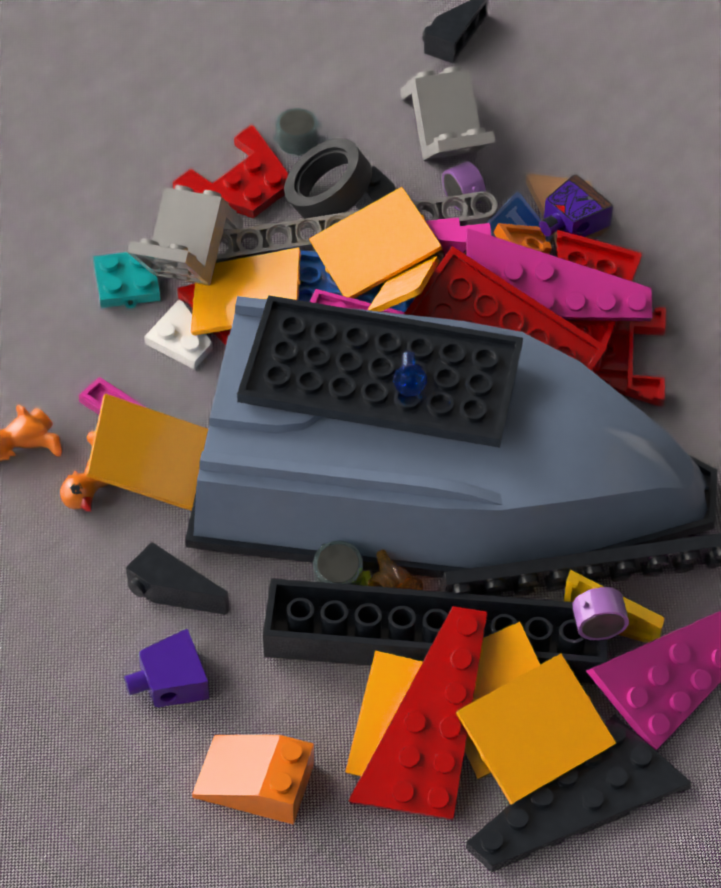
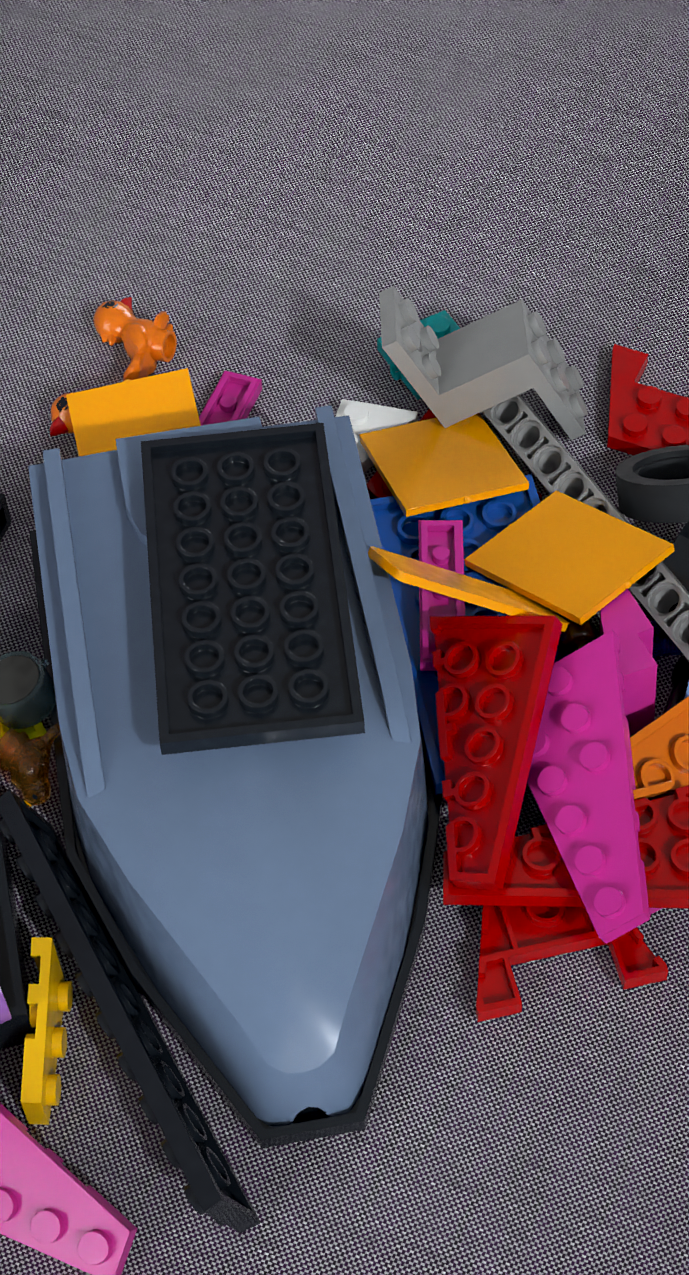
camera: 75 degrees right, 0 degrees up
(409, 378) = (220, 606): clear blue plate -> none

